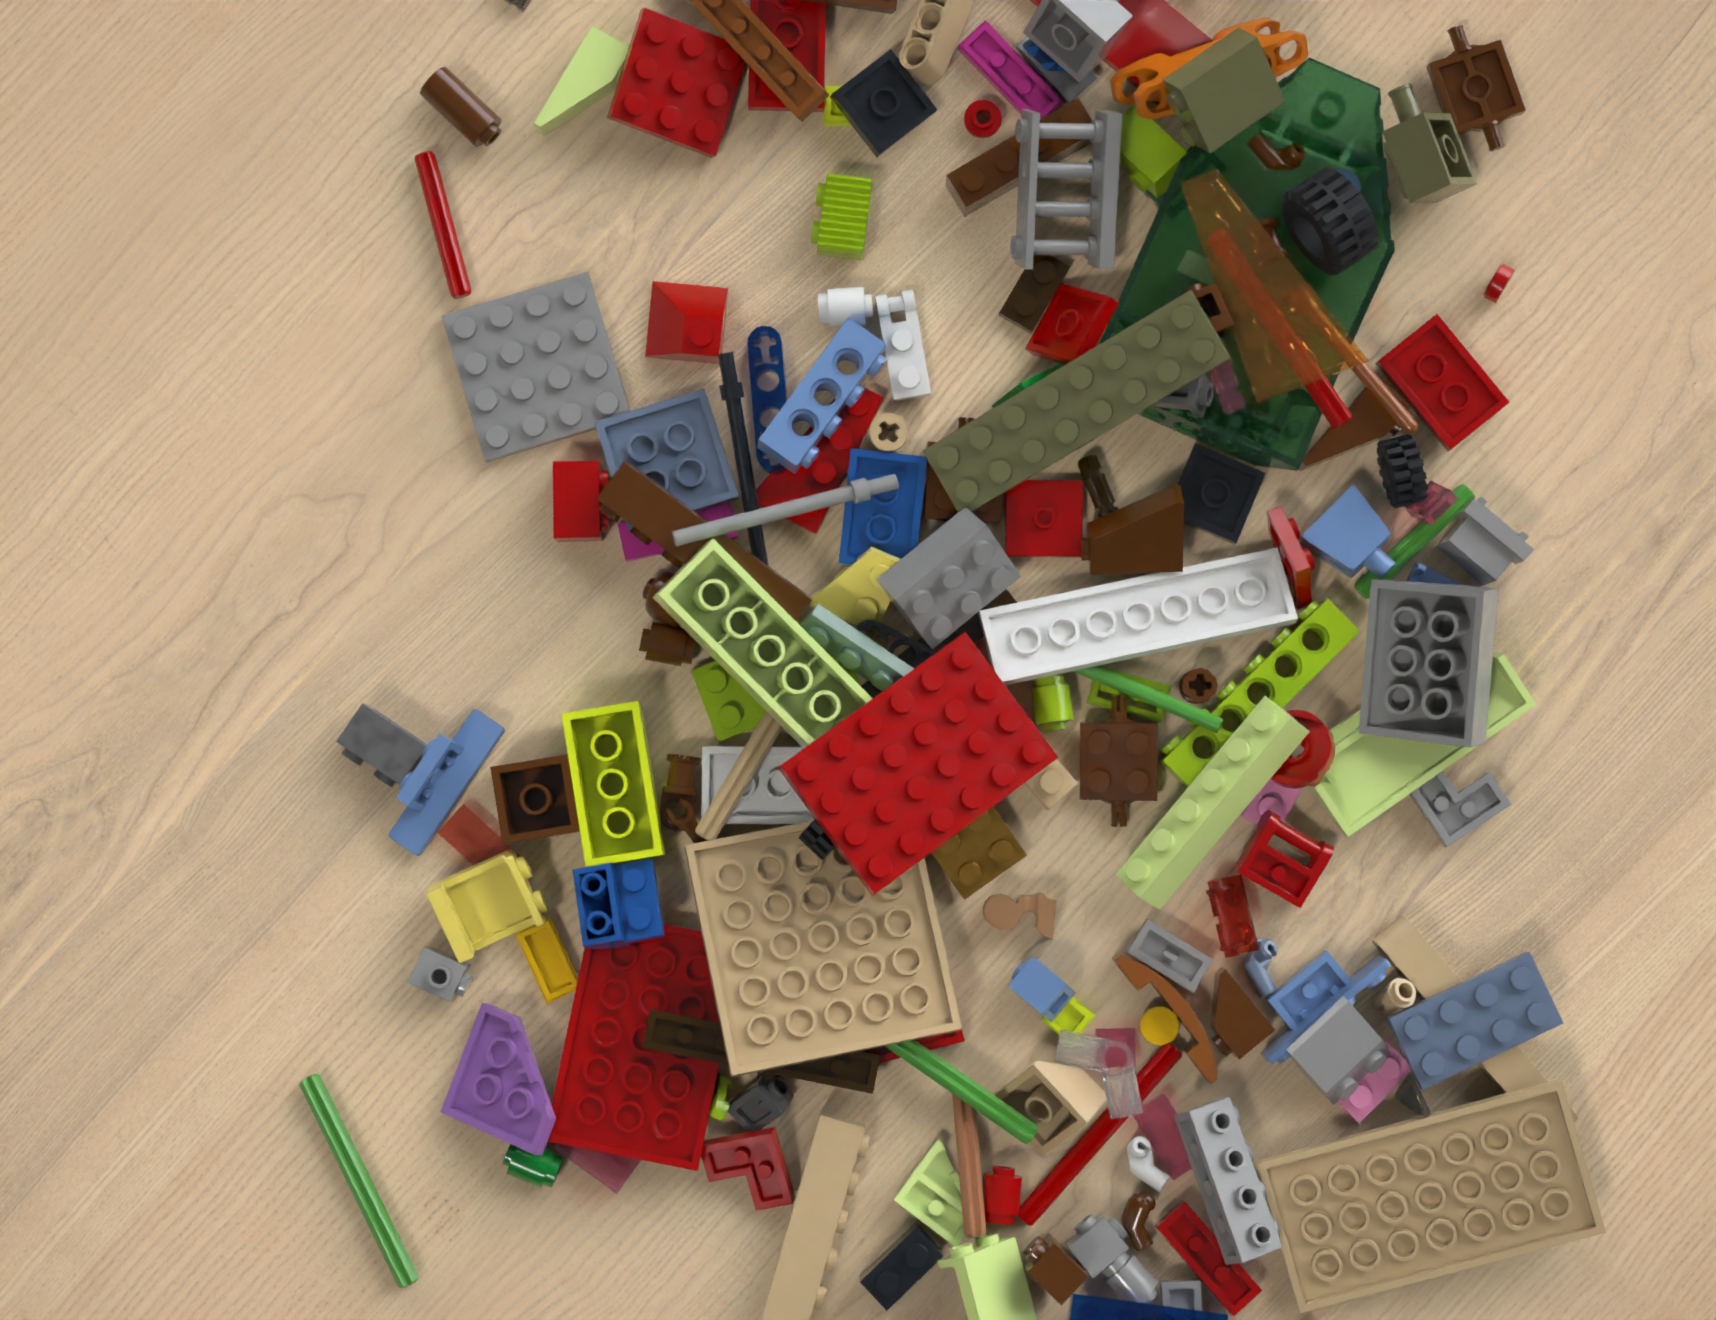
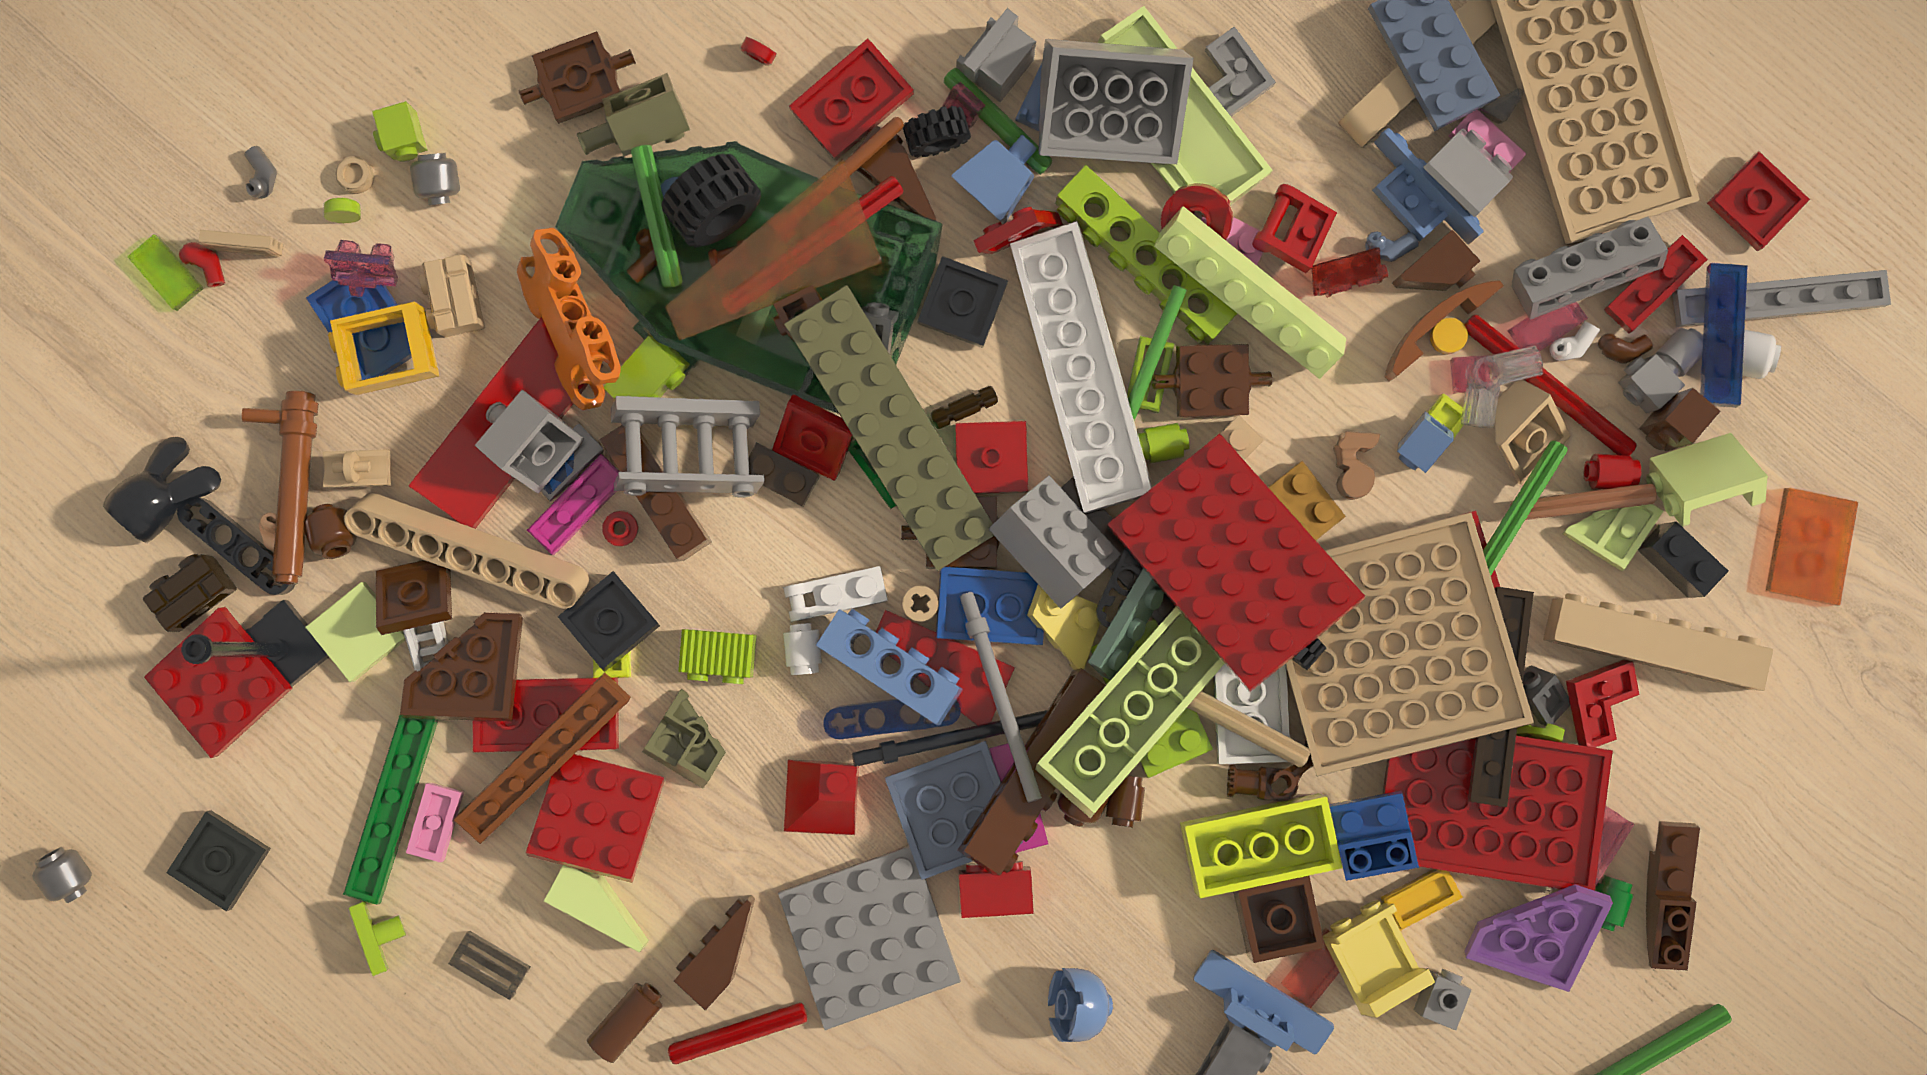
camera: 95 degrees left, 0 degrees up
(455, 584) = (1080, 1005): none -> medium blue cylinder
(517, 204) = (715, 965): none -> reddish brown slope
(538, 1229) = (1668, 895): none -> reddish brown slope
(751, 180) = (685, 743): none -> olive slope
(1138, 536) = (1007, 369): reddish brown slope -> none
(1169, 955) = (1386, 328): light grey plate -> none
(1190, 694) = (1148, 304): reddish brown bush -> none
(1223, 90) = (592, 301): olive brick -> none
(1226, 384) = (866, 292): clear pink axle -> none
(1305, 166) = (656, 218): none -> bright green axle
(1398, 994) = (1412, 121): tan pin -> none

